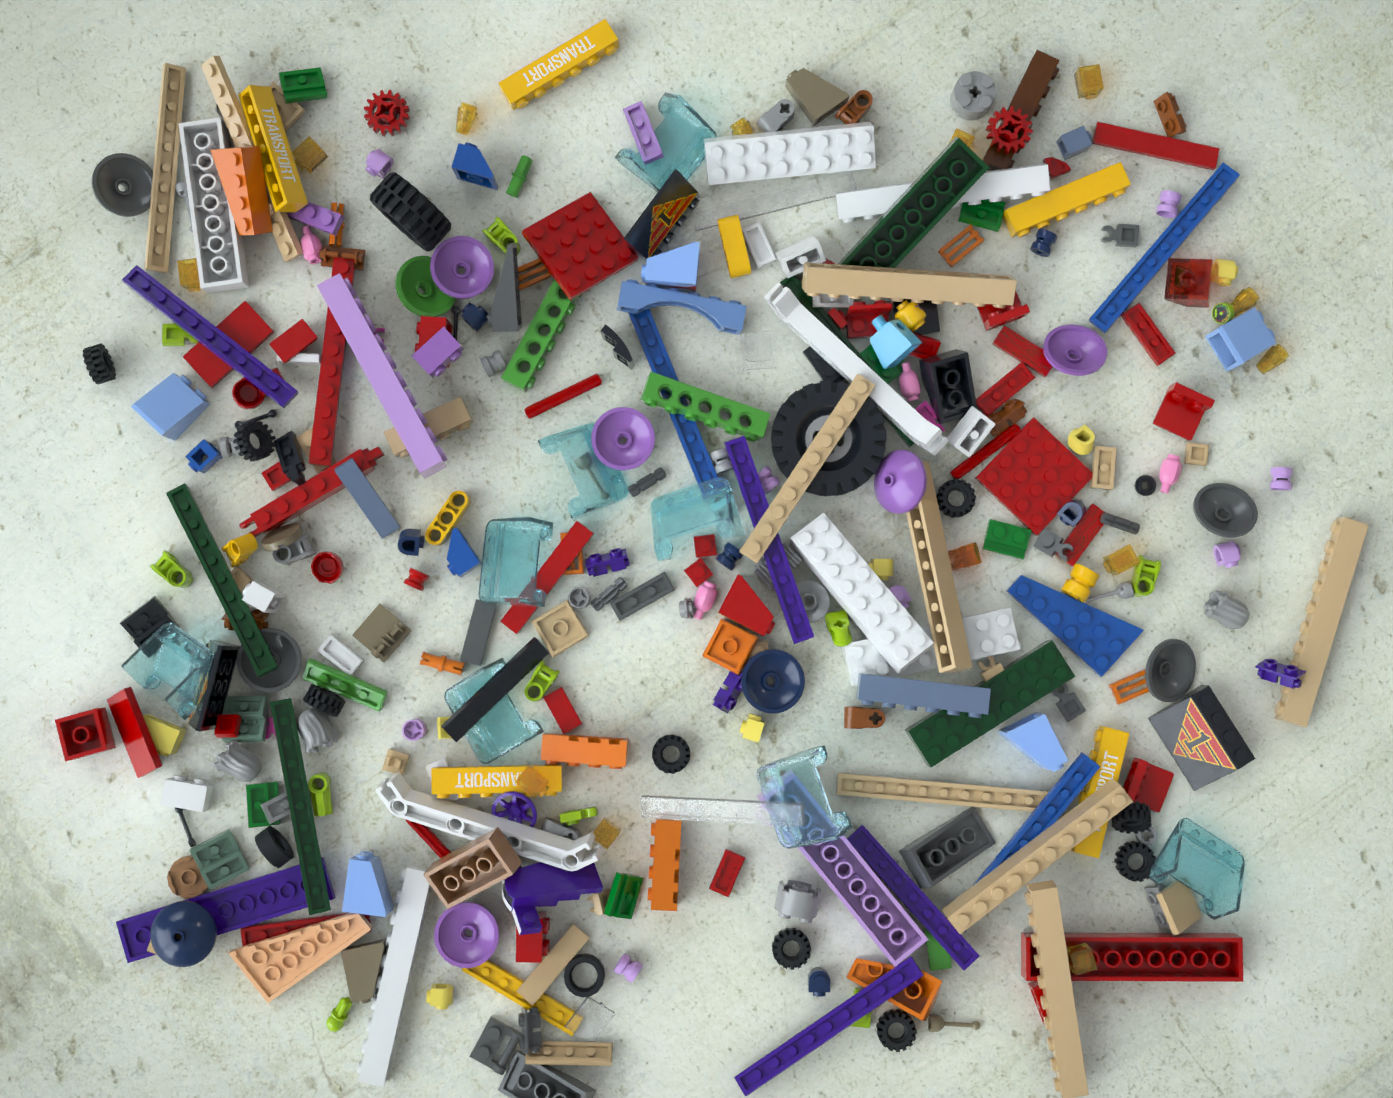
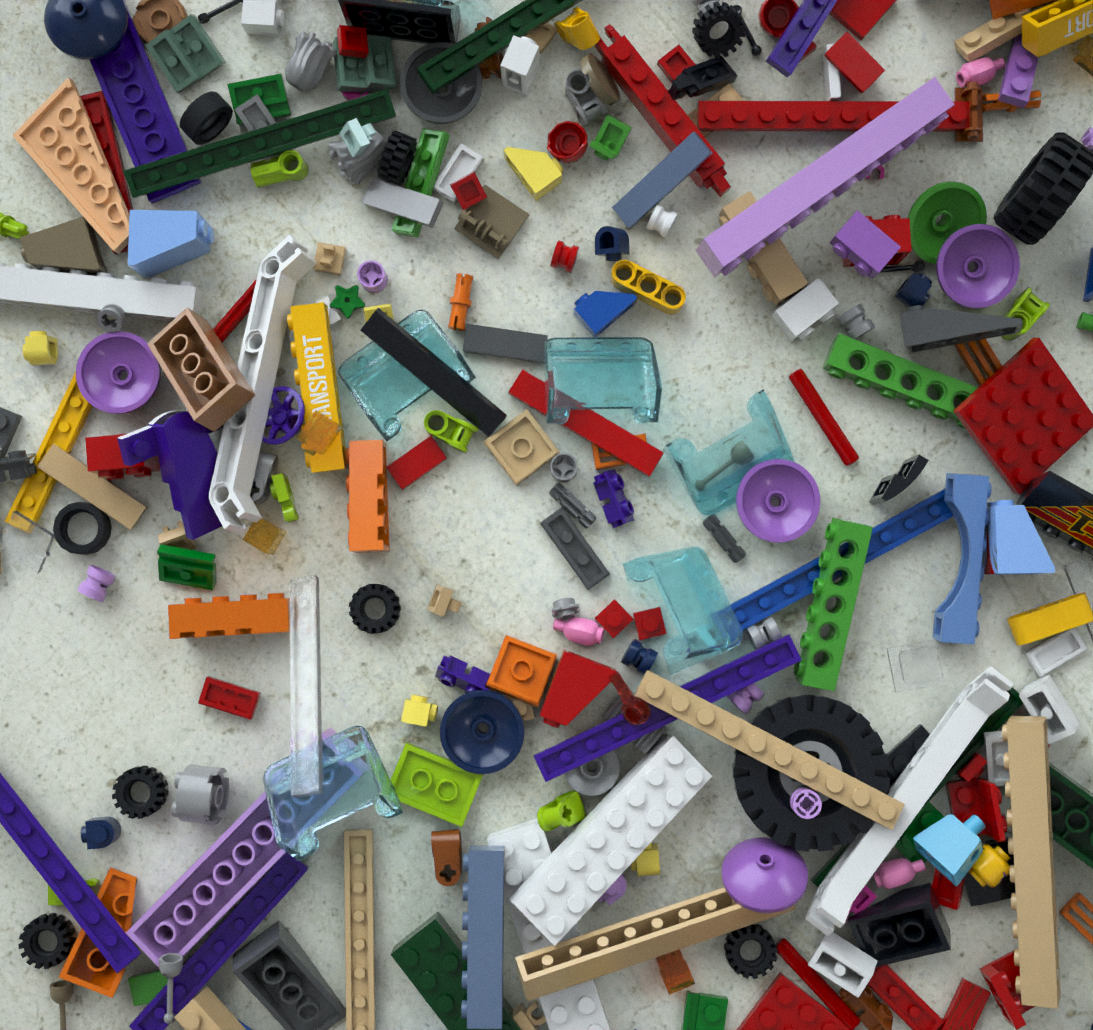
camera: 90 degrees right, 0 degrees up
(306, 729) = (357, 137): none -> light aqua tile
(328, 533) = (610, 138): none -> bright green bracket
(346, 595) = (534, 170): none -> light yellow slope
(356, 648) = (468, 190): none -> red plate
(359, 699) = (402, 202): none -> light grey tile
(397, 501) = (661, 221): none -> white wheel
(429, 935) = (109, 310): none -> light grey bush
(436, 751) = (341, 295): none -> green plate
(479, 400) = (805, 310): none -> white brick
(670, 701) = (442, 600): none -> tan tile
(767, 564) = (634, 708): none -> clear red plate
(808, 721) = (434, 784): none -> lime plate
(847, 448) = (802, 799): none -> lavender wheel
(922, 934) = (170, 967): none -> light grey hinge

